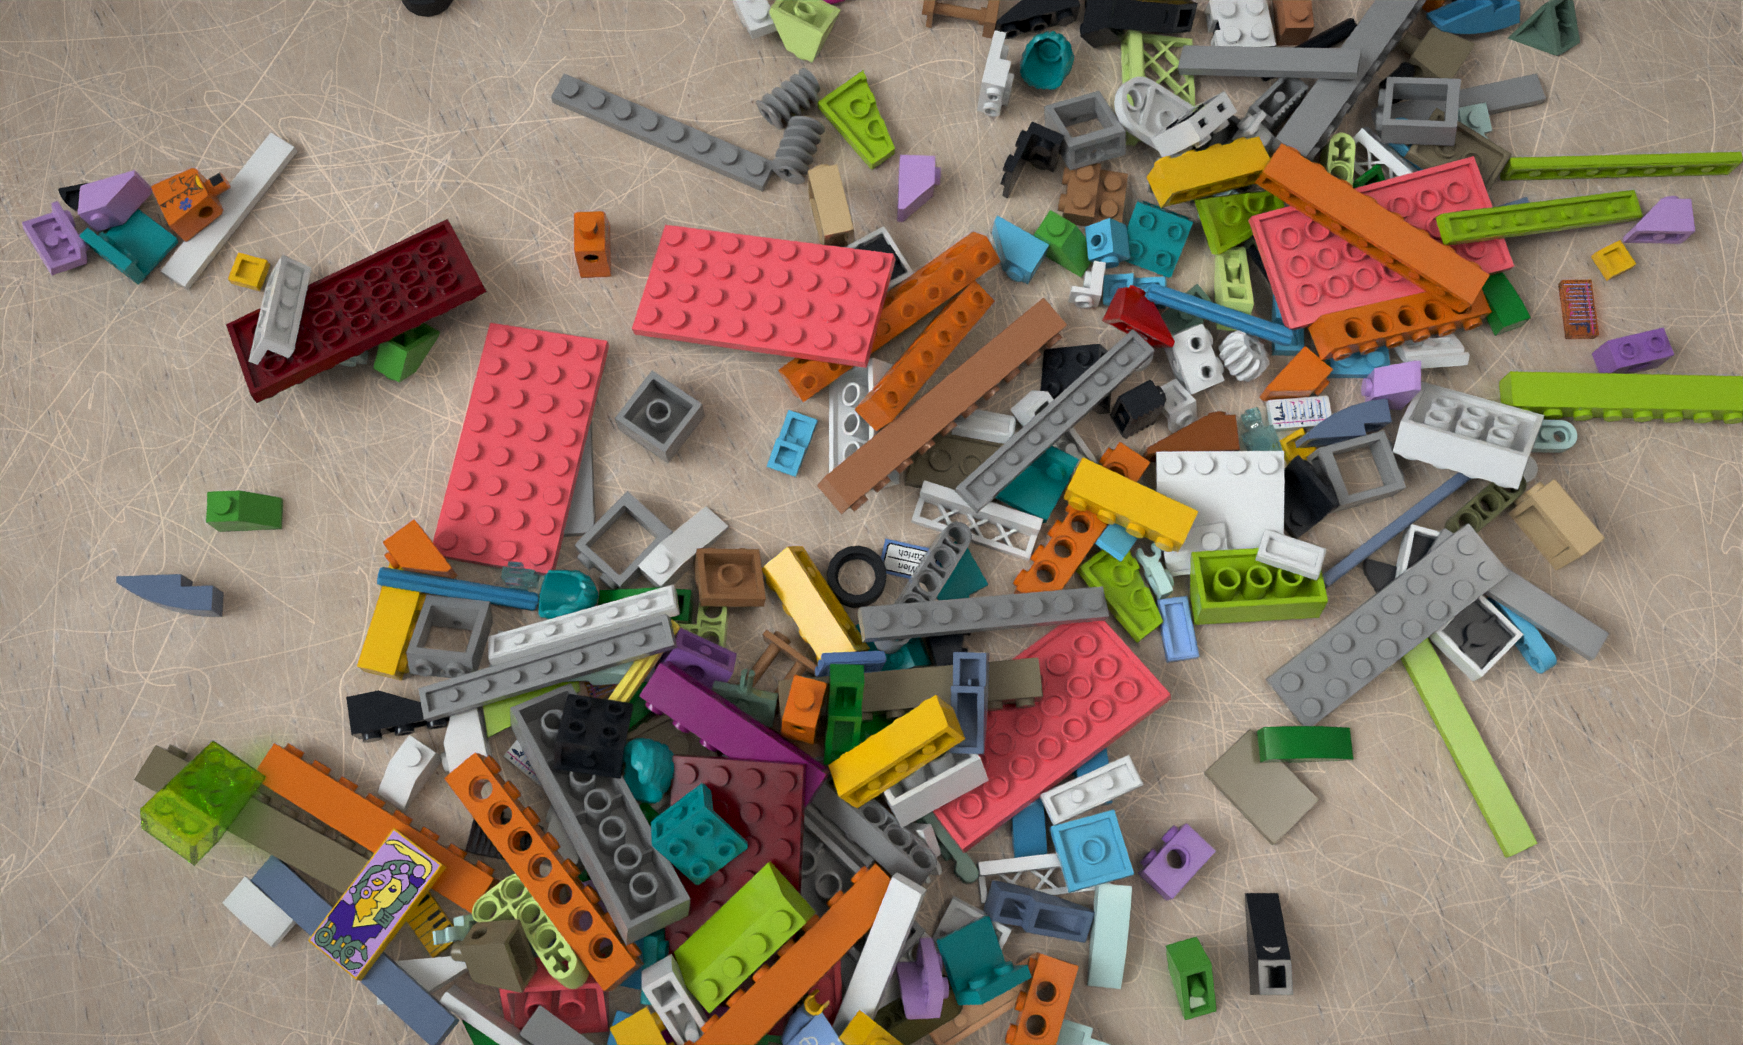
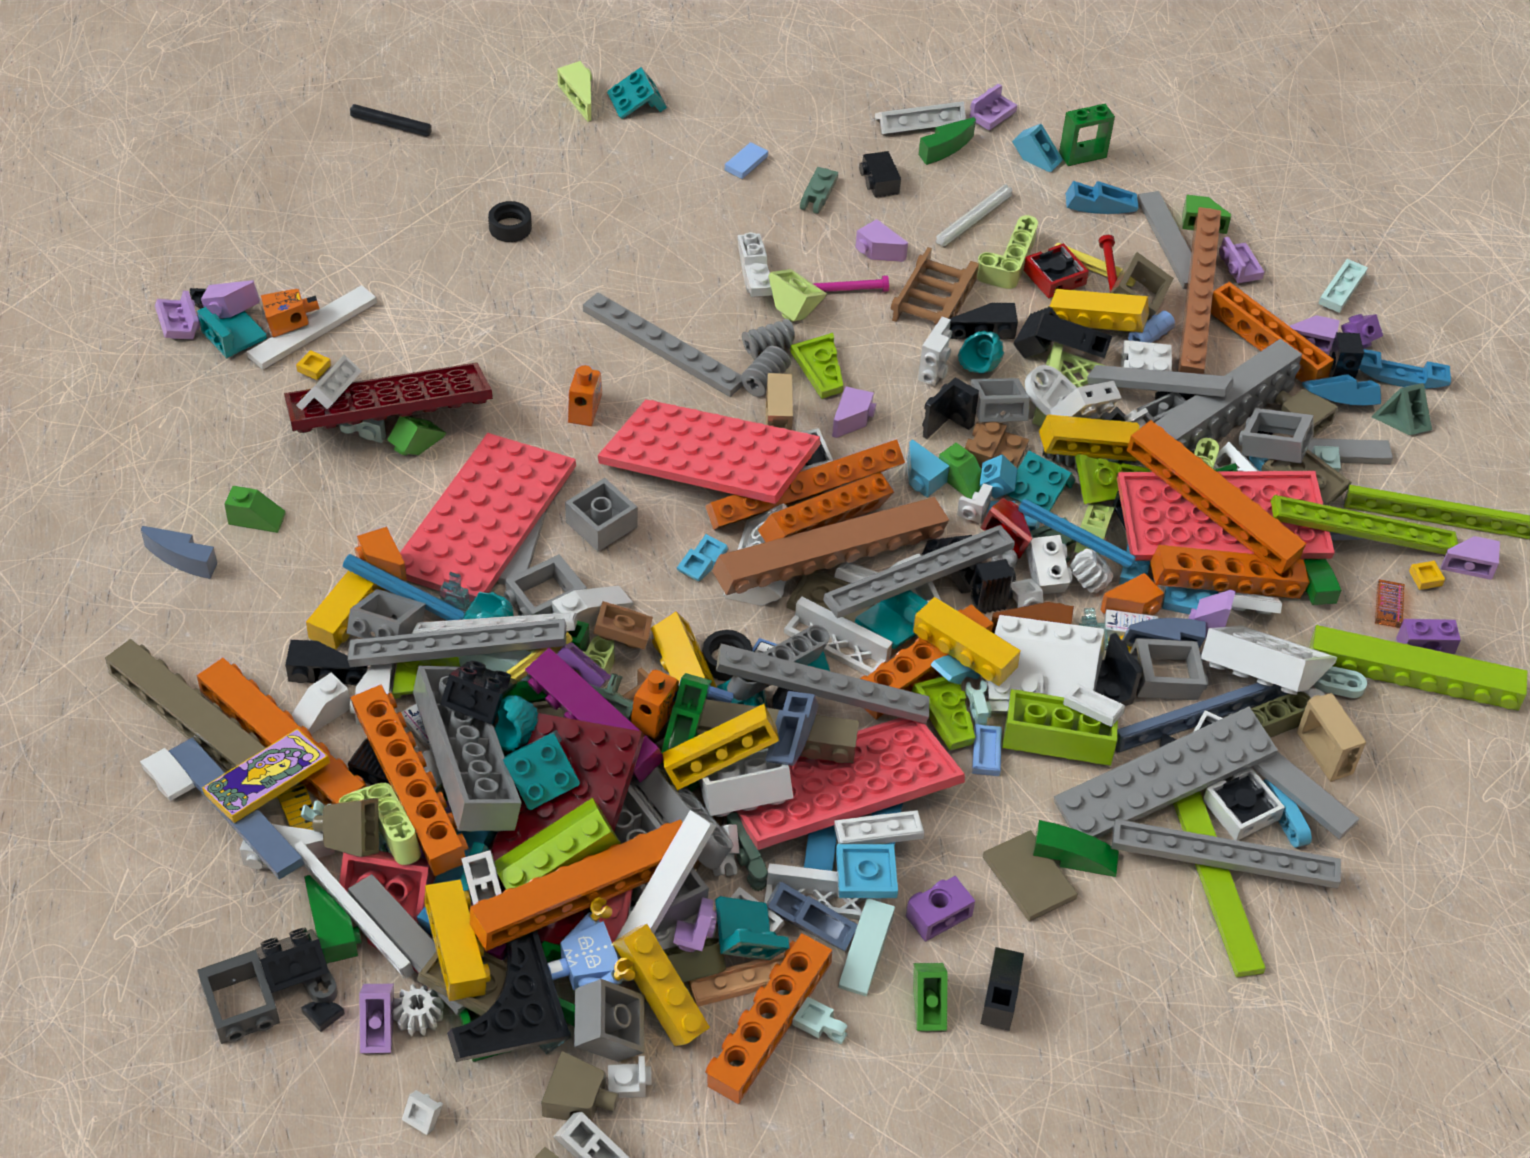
camera: 15 degrees right, 25 degrees down
(200, 802) = (151, 678): clear neon green slope -> none
(1470, 711) = (1226, 853): none -> light grey plate

